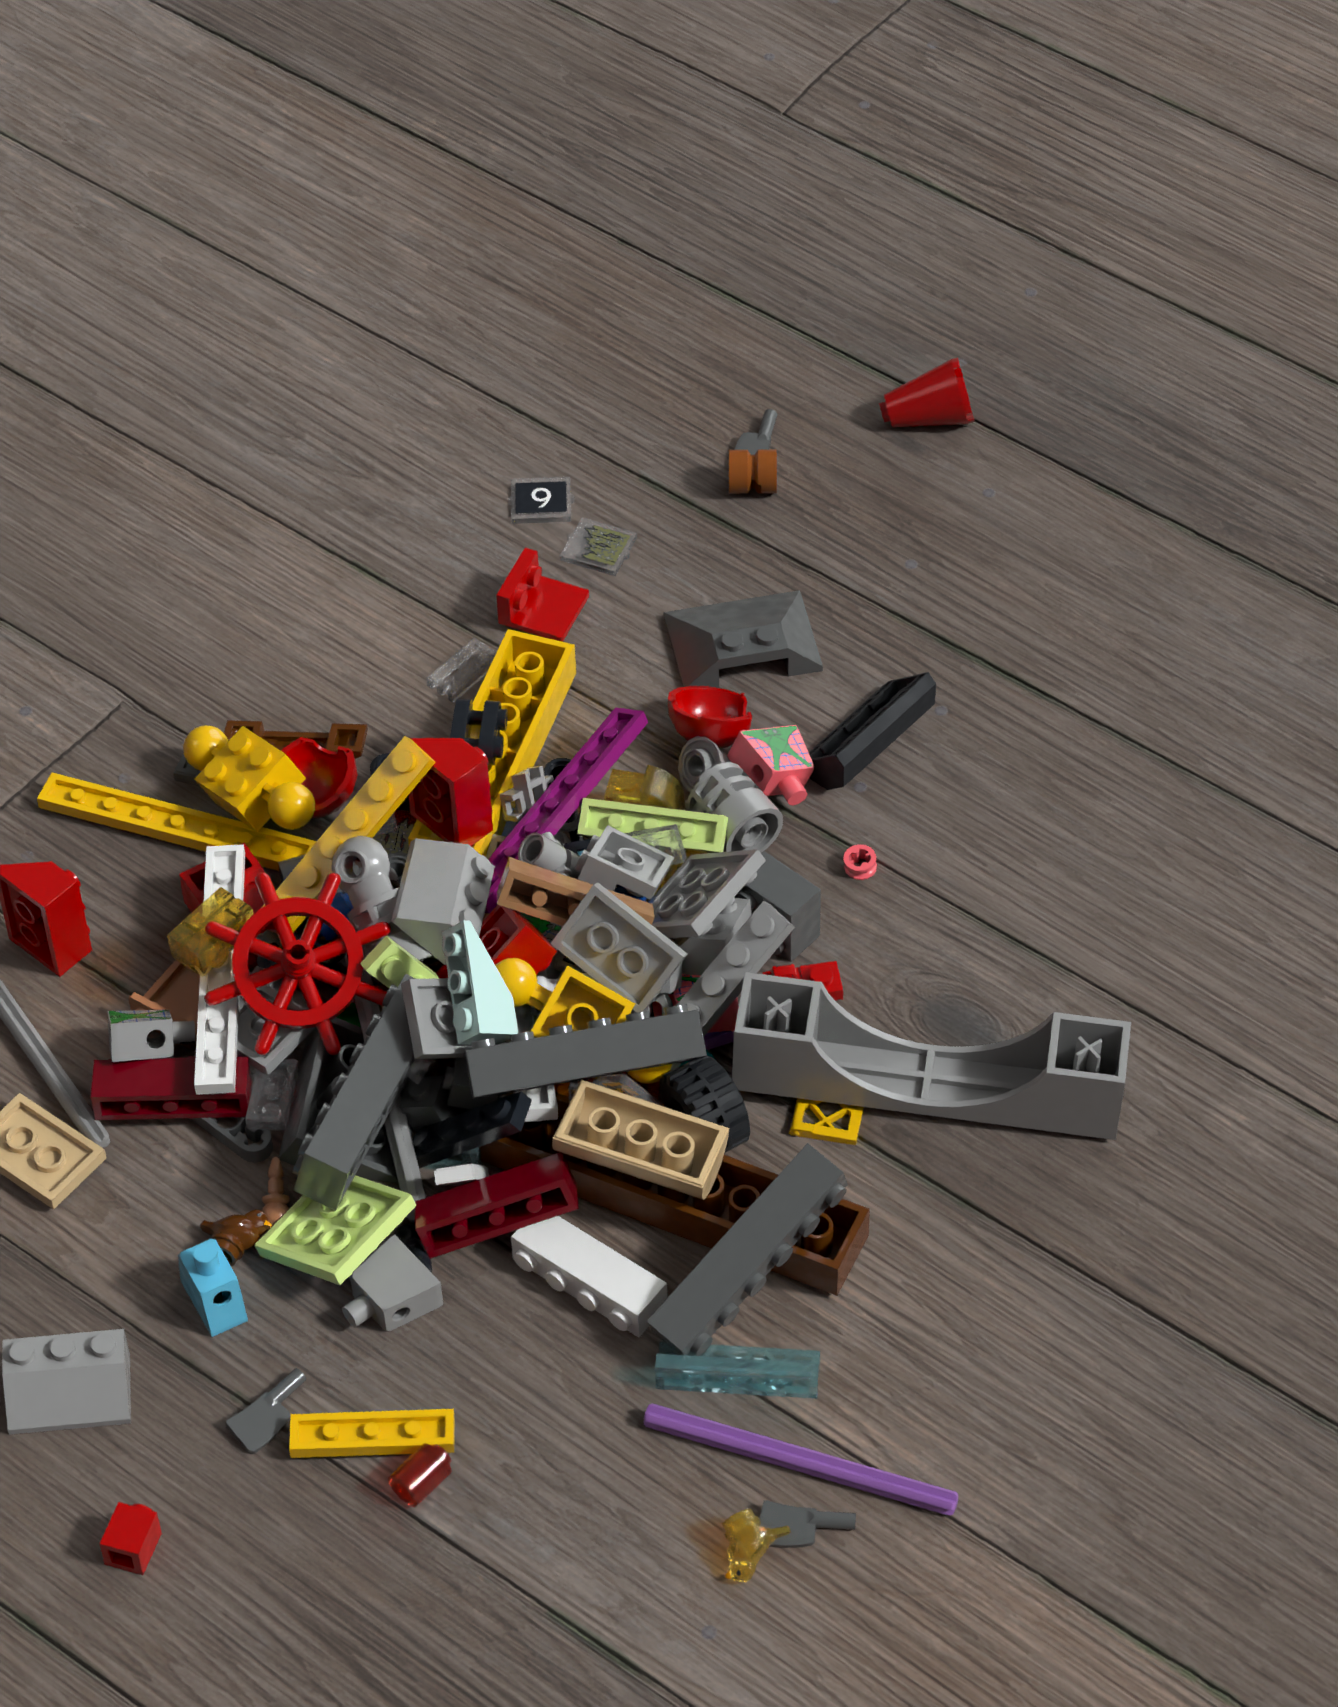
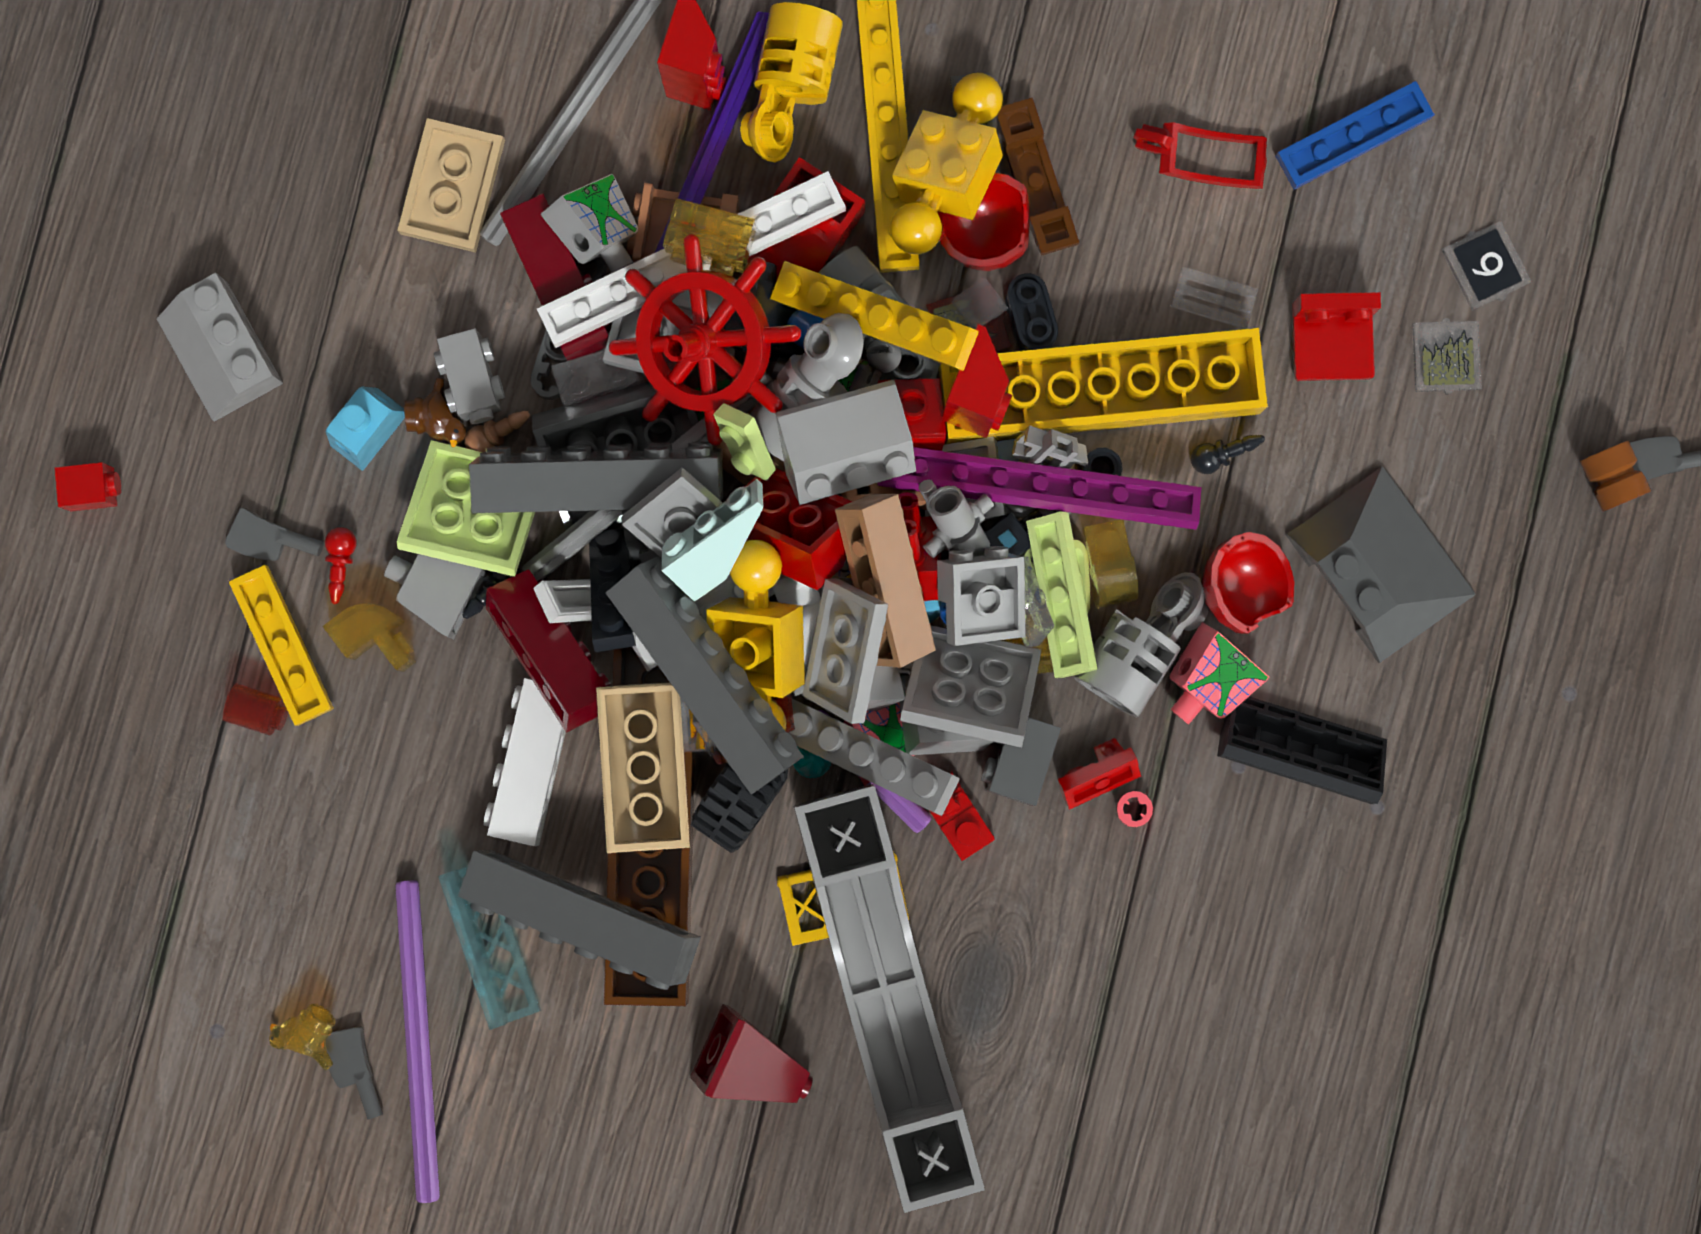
camera: 65 degrees right, 35 degrees up
(102, 862) = (791, 69): none -> yellow cylinder
(142, 958) = (723, 117): none -> dark purple axle
(214, 1188) = (472, 387): none -> light grey brick
(307, 1353) = (340, 545): none -> red bar
(314, 645) = (1168, 139): none -> red sword
(388, 538) = (1354, 135): none -> blue plate
(398, 1348) = (369, 624): none -> clear yellow brick
(491, 720) = (1080, 386): black brick -> none
(593, 707) = (1208, 457): none -> black bar
(818, 865) = (1113, 770): none -> red hinge
(938, 1197) = (747, 1065): none -> dark red slope

